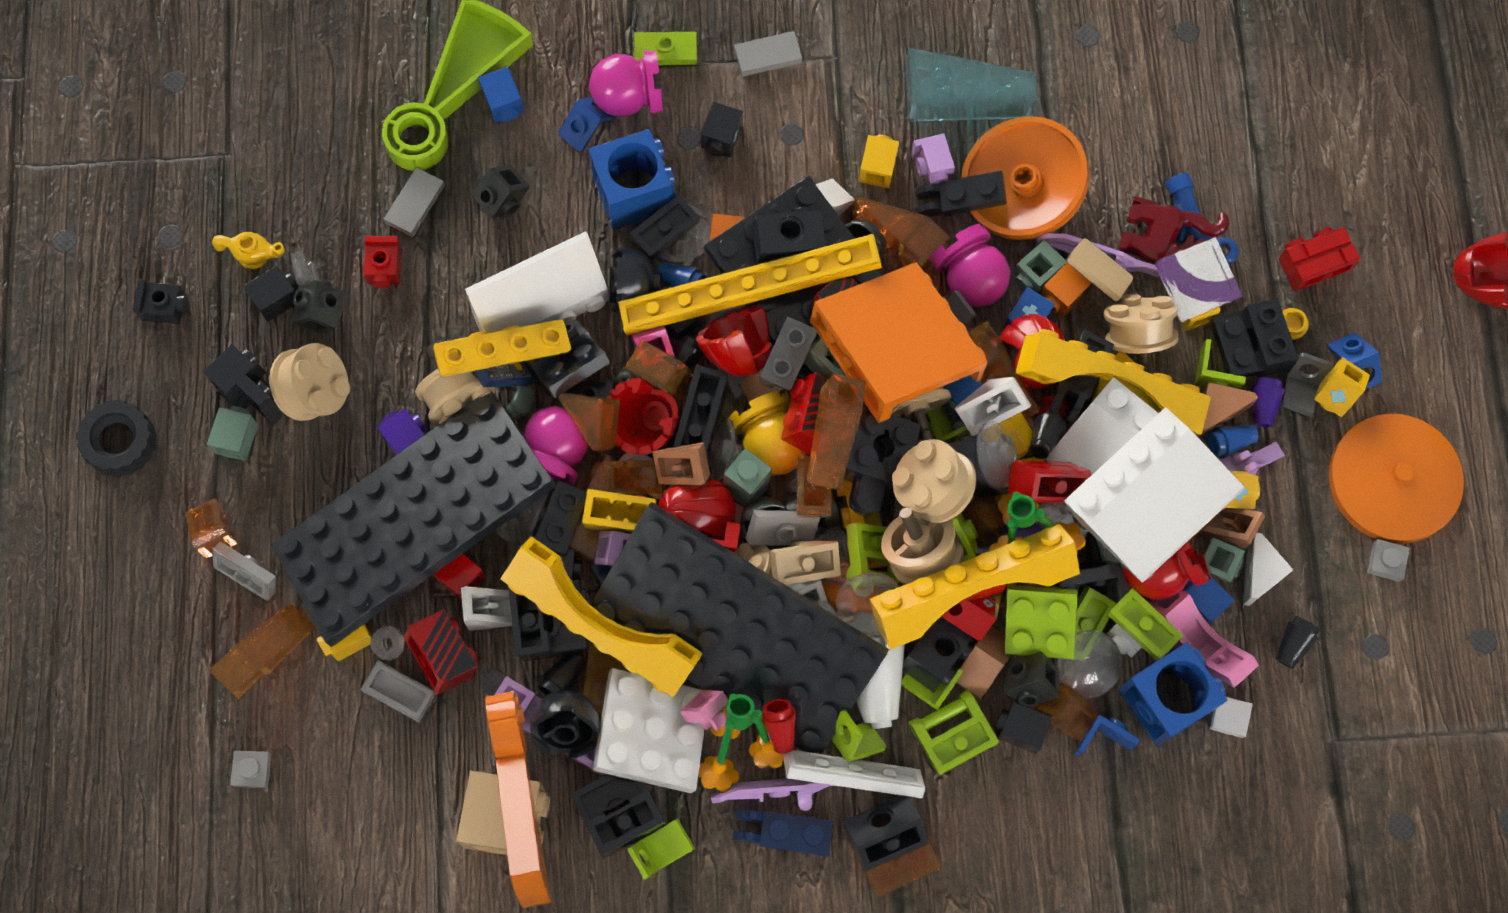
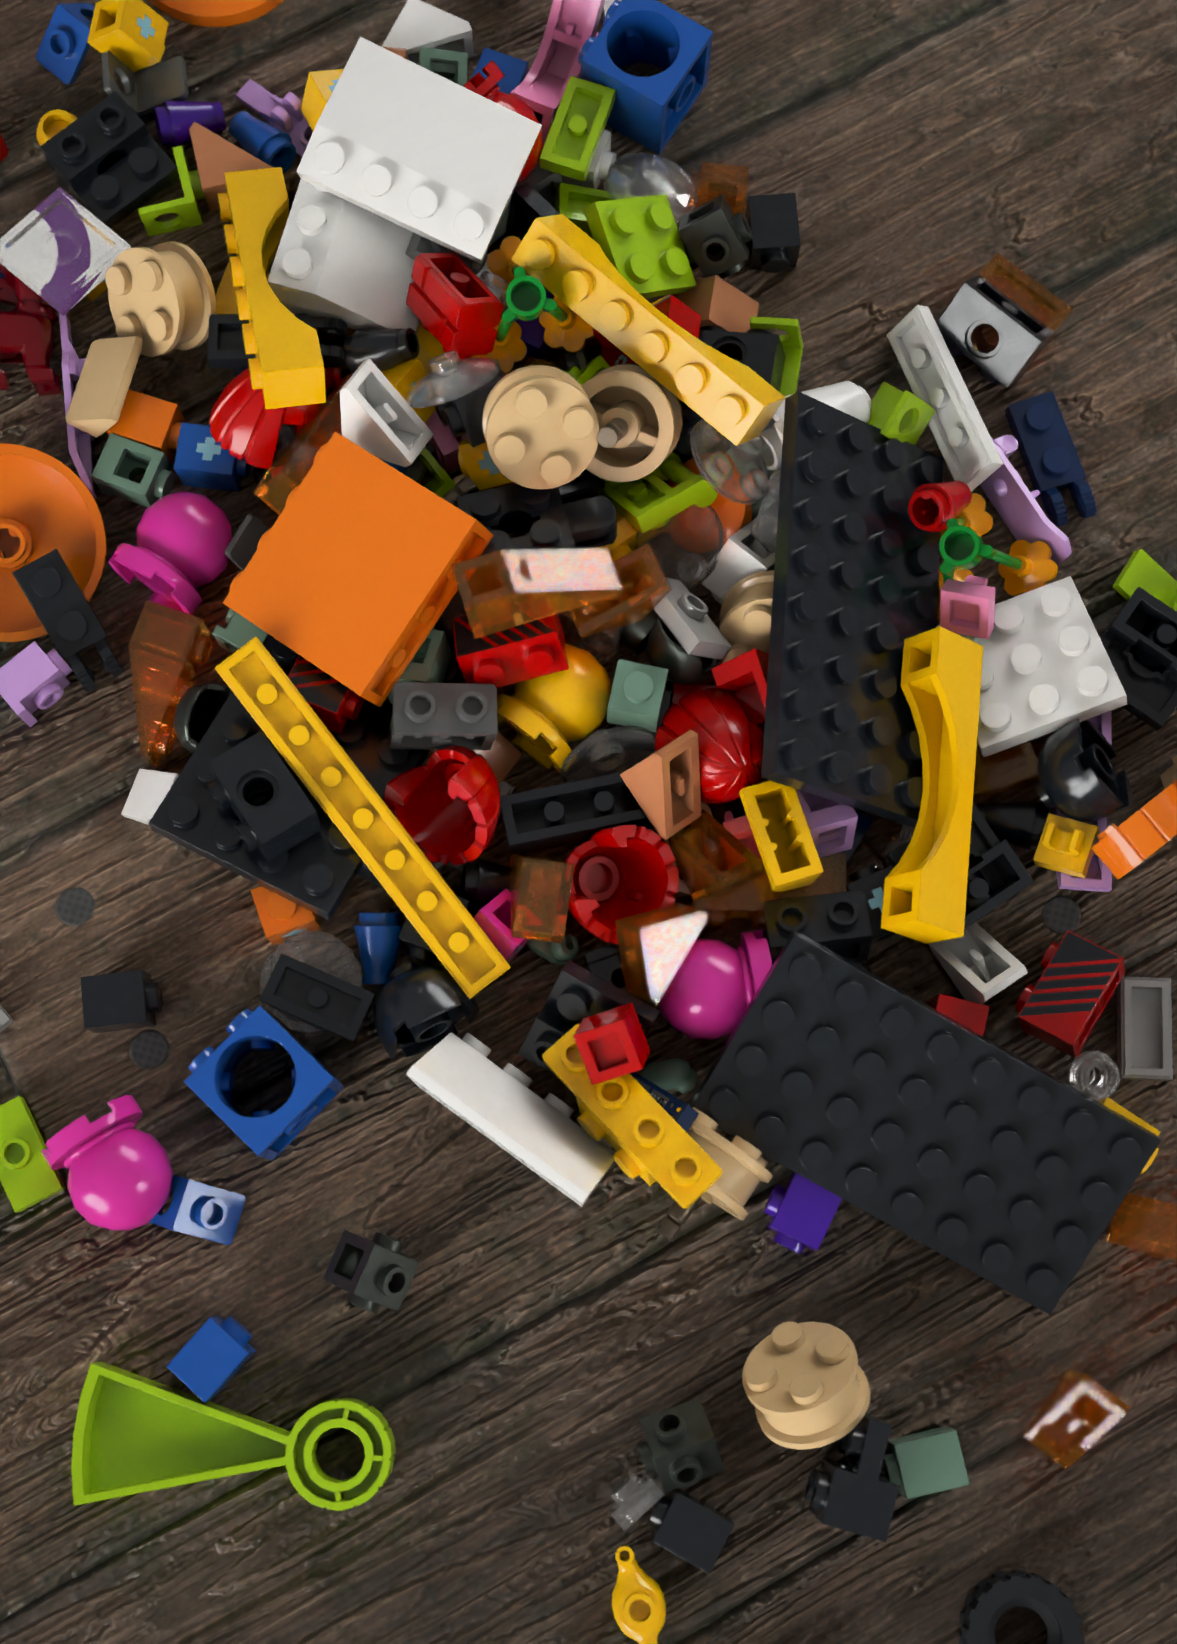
camera: 115 degrees left, 5 degrees up
(244, 571) = (1105, 1329): light grey plate -> none
(387, 249) = (540, 1391): red brick -> none
(414, 202) = (442, 1399): light grey tile -> none
(529, 687) = (1066, 846): none -> yellow tile
(546, 354) = (612, 1043): none -> red panel
(805, 561) = (720, 560): tan slope -> none
(878, 161) = (66, 757): yellow brick -> none
(958, 743) = (830, 301): lime plate -> none
(1113, 729) = (726, 148): blue bracket -> none

